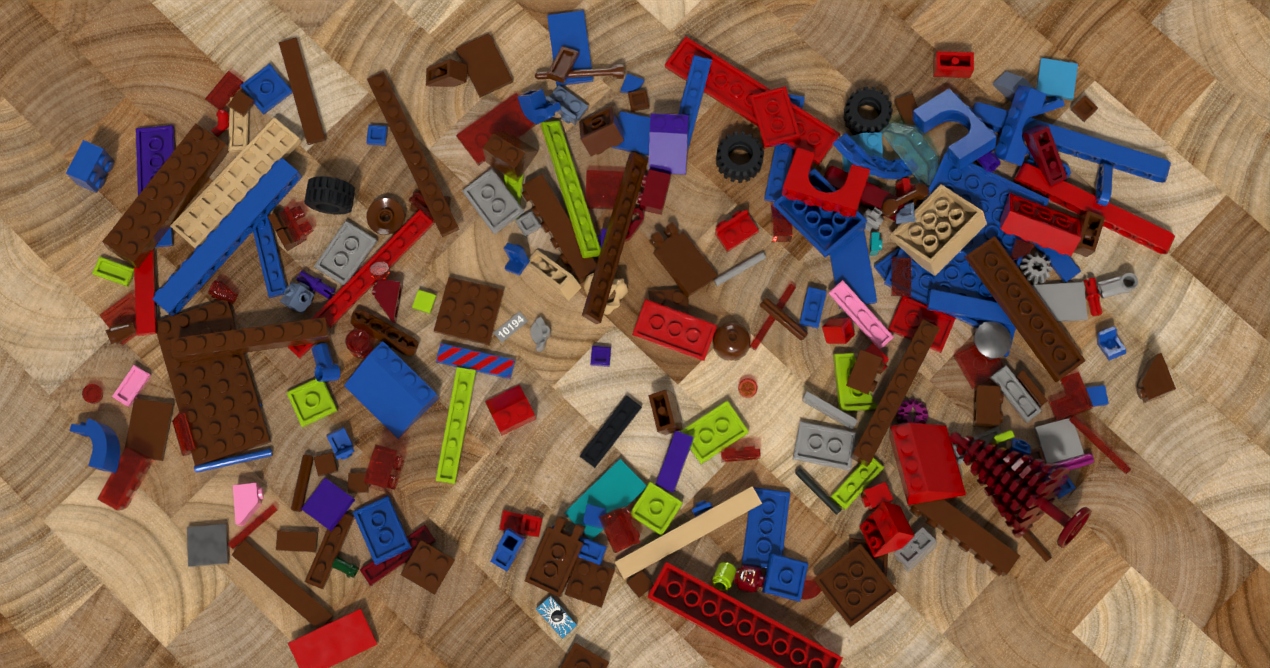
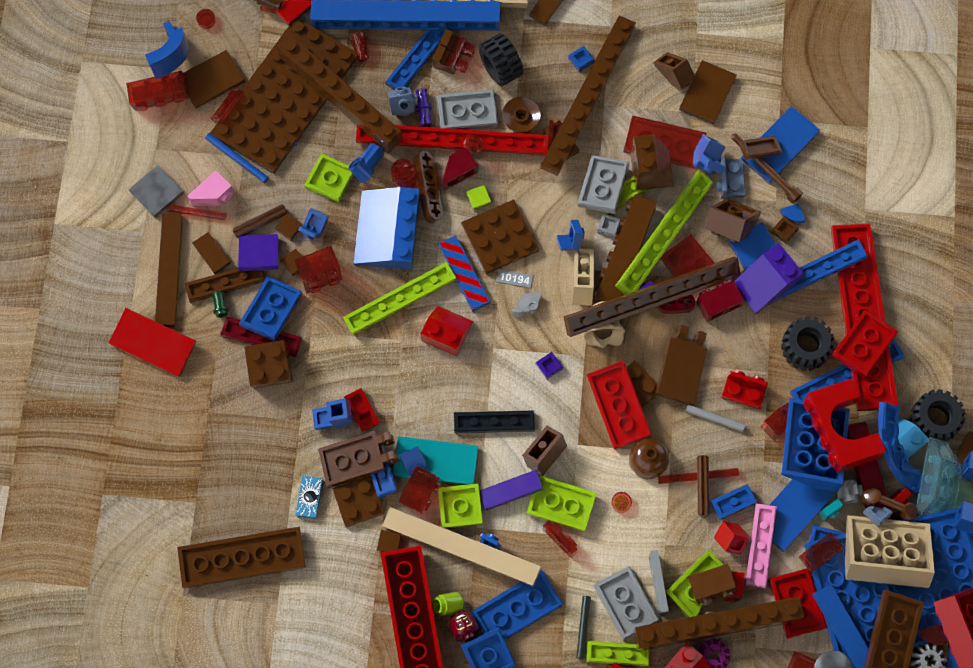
camera: 50 degrees right, 5 degrees down
(131, 386) = (234, 40): bright pink tile -> none

